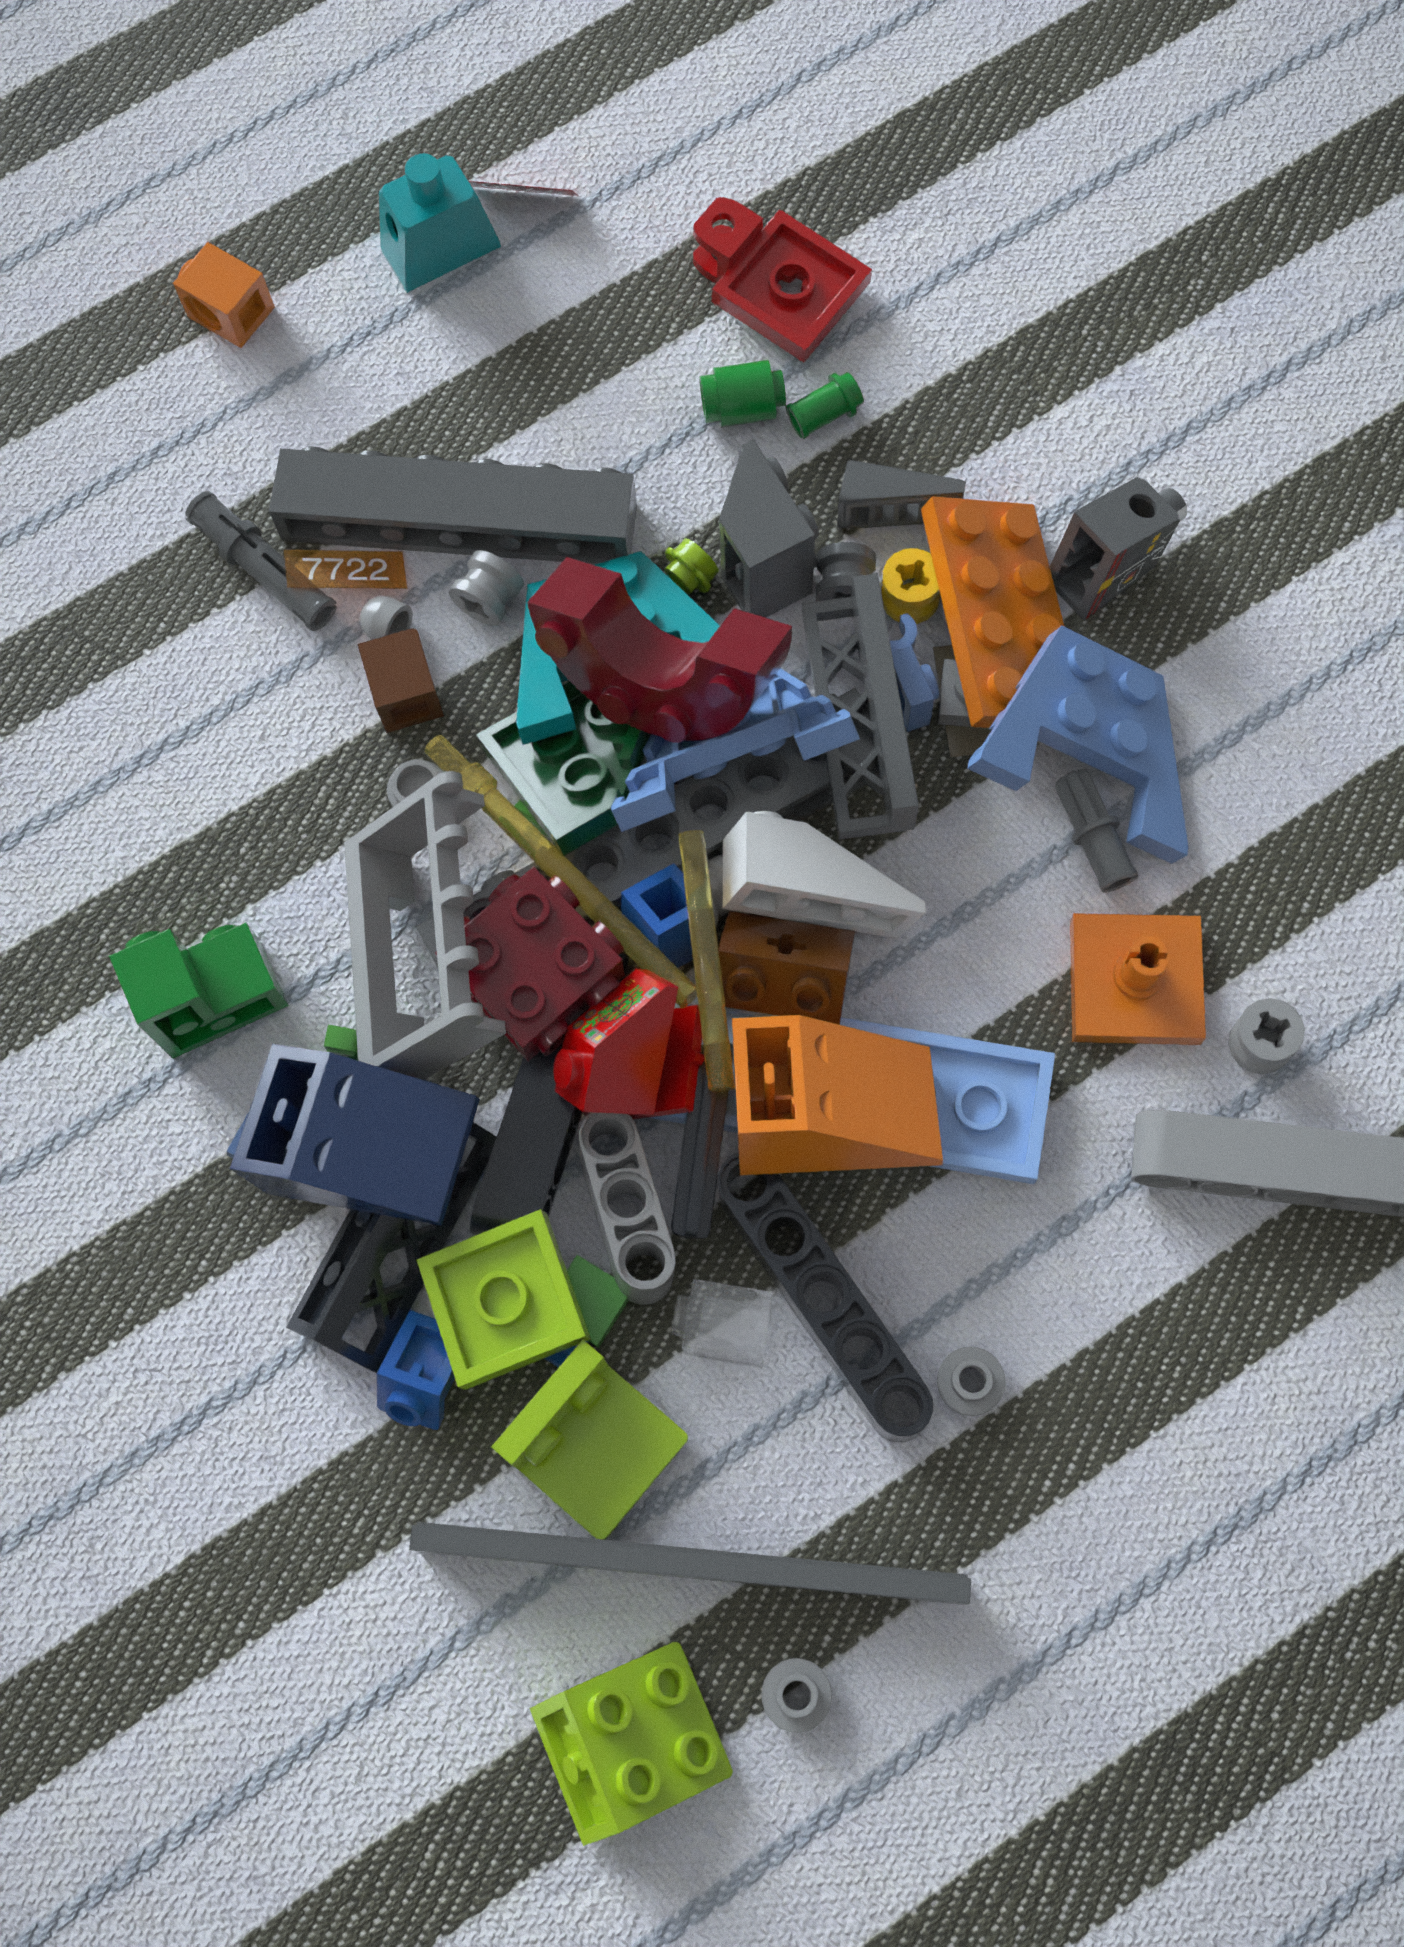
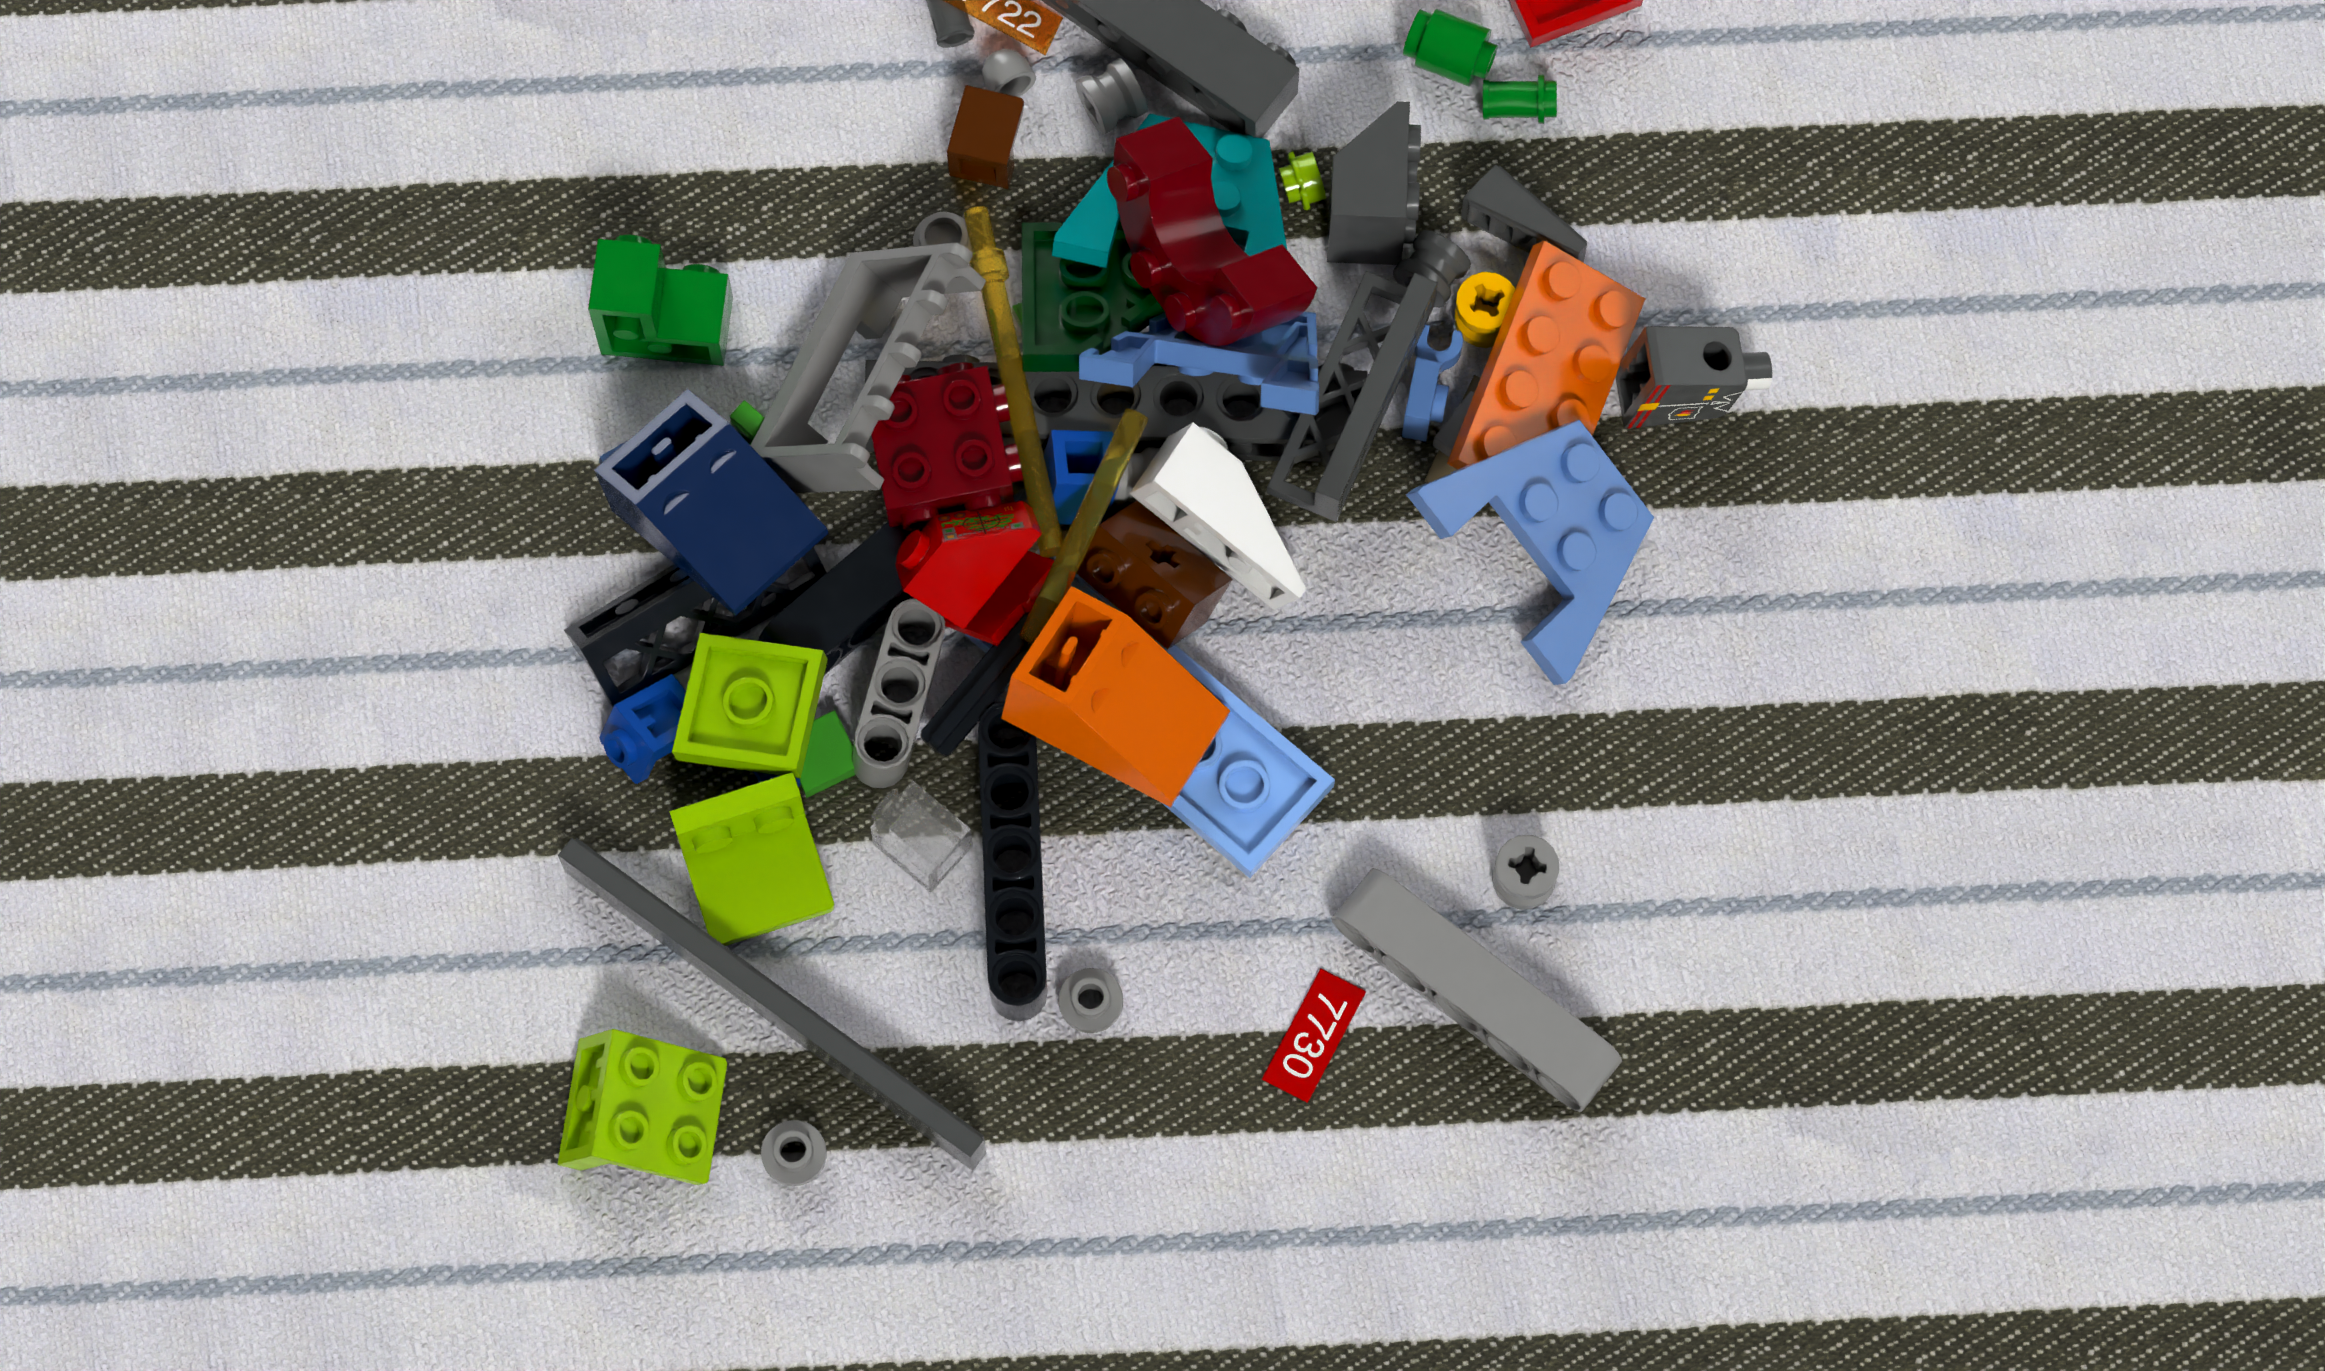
camera: 25 degrees right, 0 degrees up
(1095, 830) = (1502, 616): dark grey axle -> none
(1137, 979) = (1452, 762): orange tile -> none
(1179, 1291) = (1314, 1035): none -> red sticker

